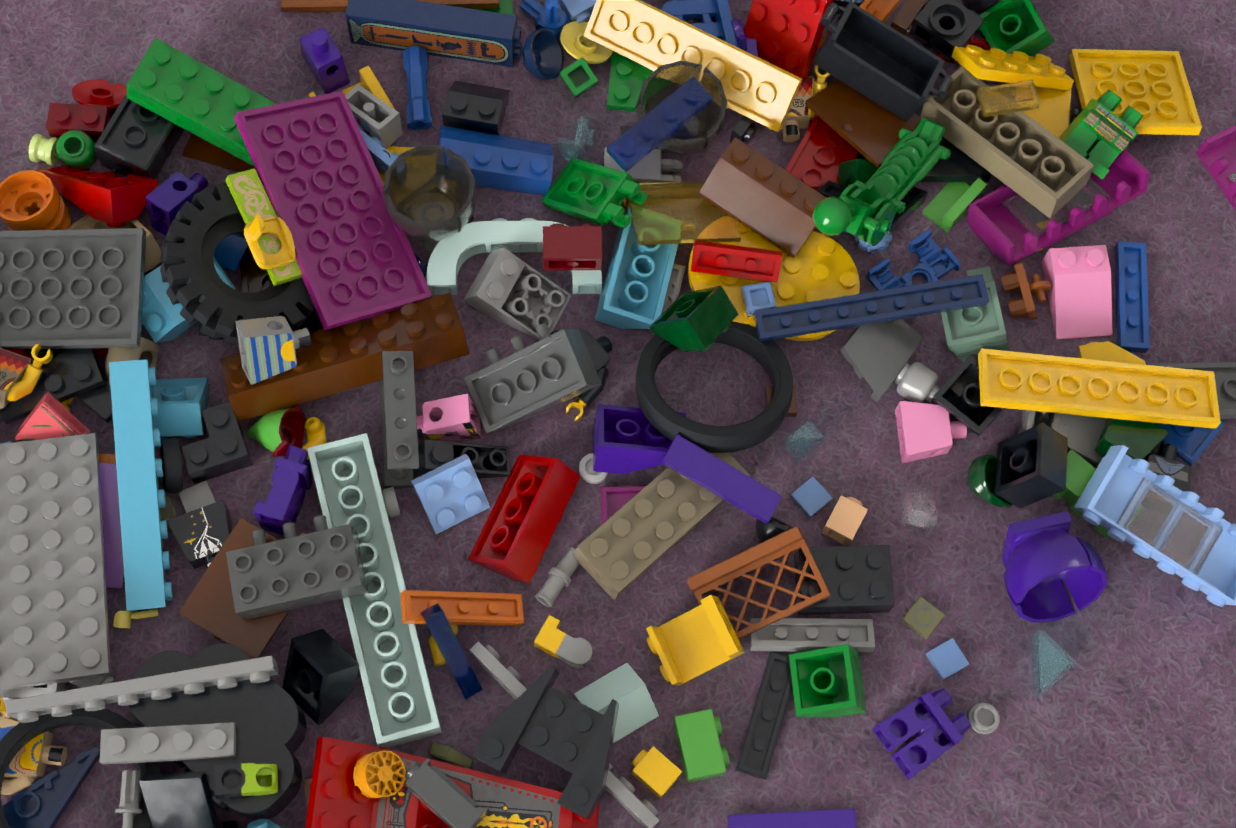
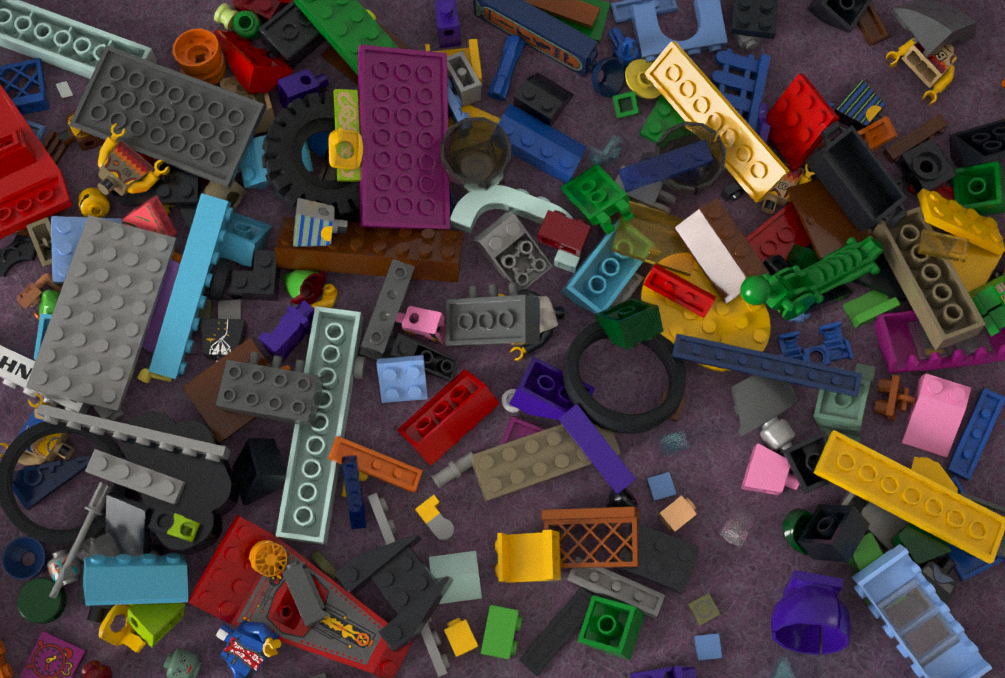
camera: 30 degrees right, 5 degrees up
(757, 297) = (685, 324): medium blue tile -> none

